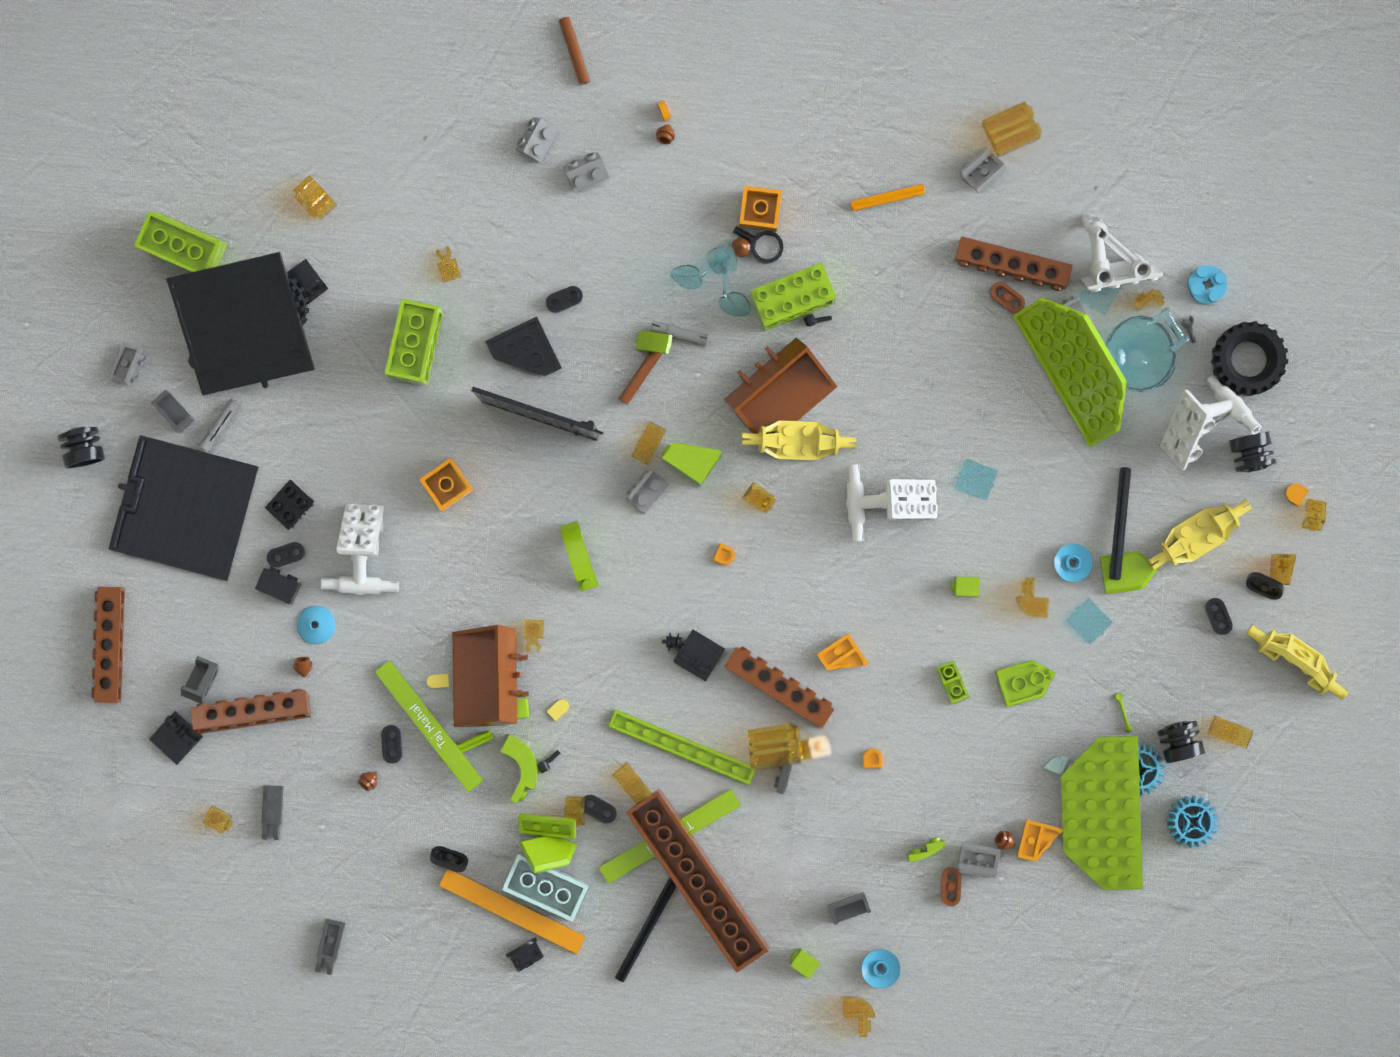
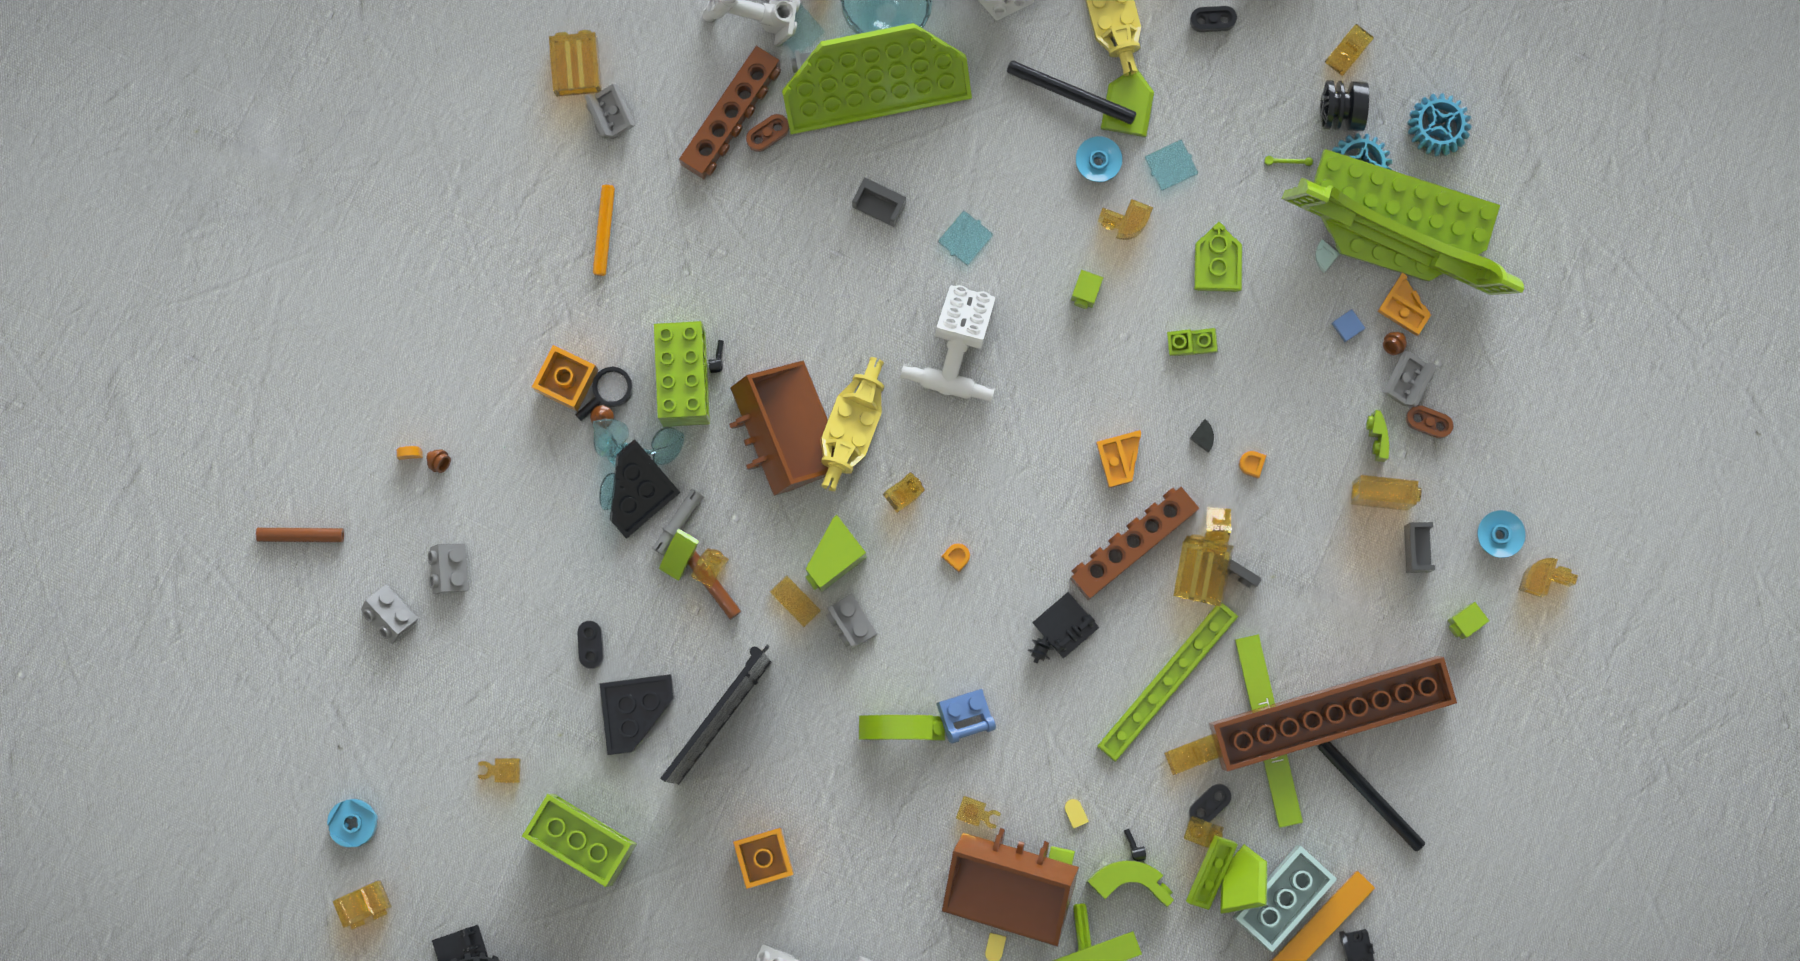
camera: 75 degrees left, 5 degrees down
(366, 159) = (366, 821): none -> medium azure plate
(610, 599) = (962, 708): none -> medium blue plate
(652, 369) = (709, 566): none -> clear yellow bracket
(693, 294) = (638, 489): none -> black plate
(881, 714) = (1204, 436): none -> pearl dark grey tile
(882, 868) = (1385, 492): none -> clear yellow brick
(981, 402) = (879, 202): none -> dark grey panel
(1006, 800) = (1348, 325): none -> medium blue tile
(1085, 819) = (1456, 263): none -> lime piece

